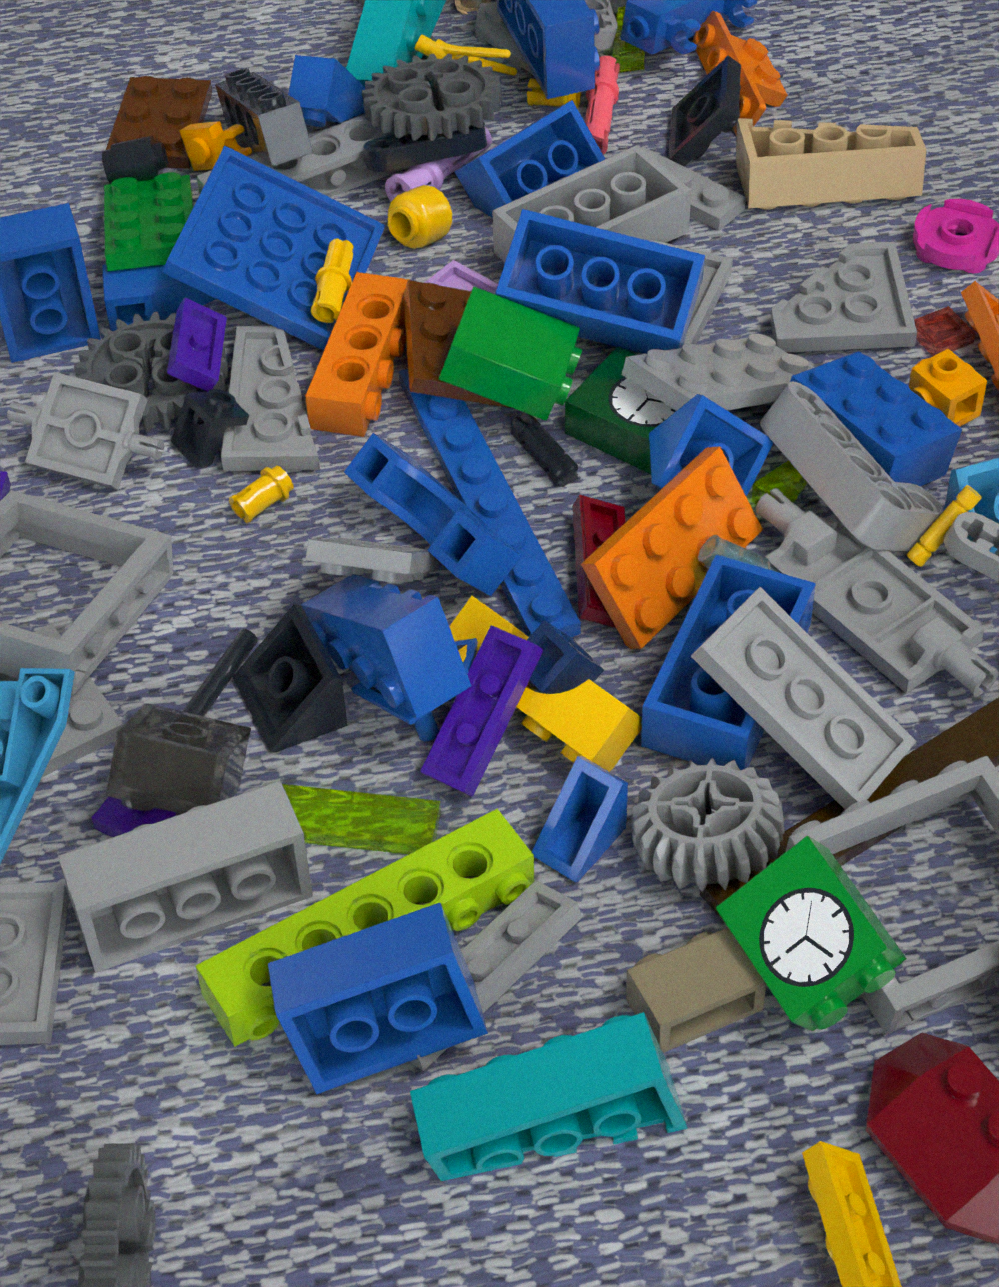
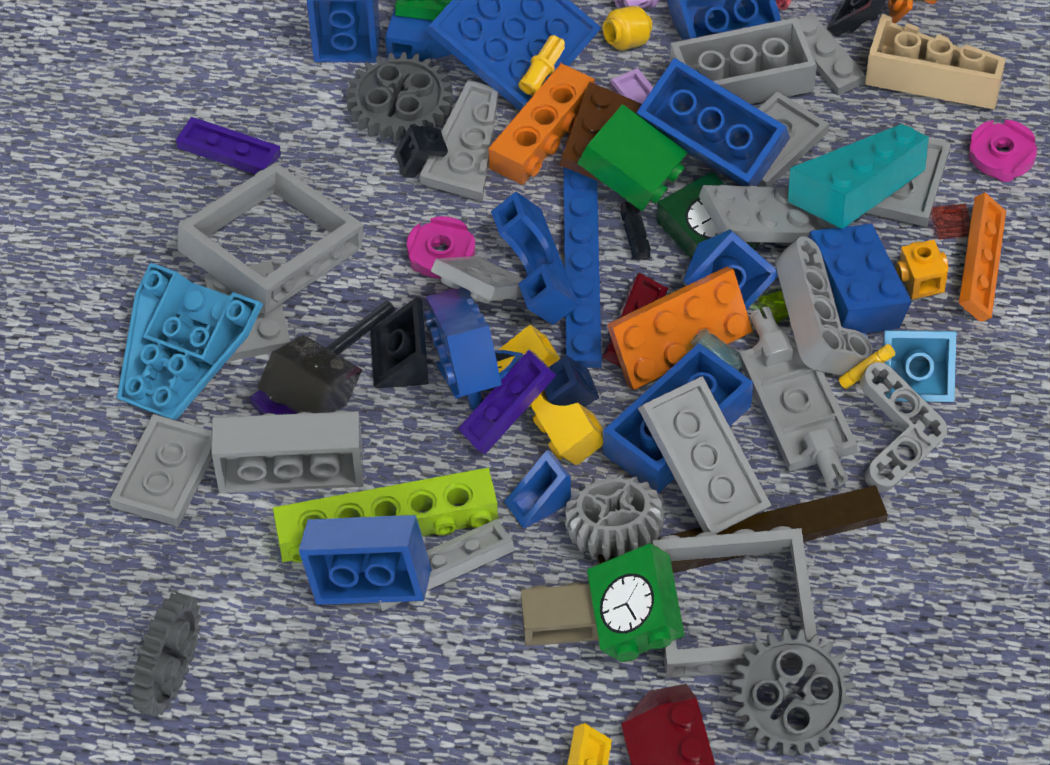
camera: 20 degrees right, 5 degrees up
(85, 430) = (339, 131): light grey plate -> none
(197, 345) = (431, 90): dark purple plate -> none
(262, 493) = (440, 206): yellow pin -> none
(264, 537) = (440, 231): none -> dark pink plate
(364, 819) = (408, 446): clear neon green tile -> none
(548, 1100) = (445, 650): teal wedge -> none
(814, 297) = (859, 175): none -> teal wedge

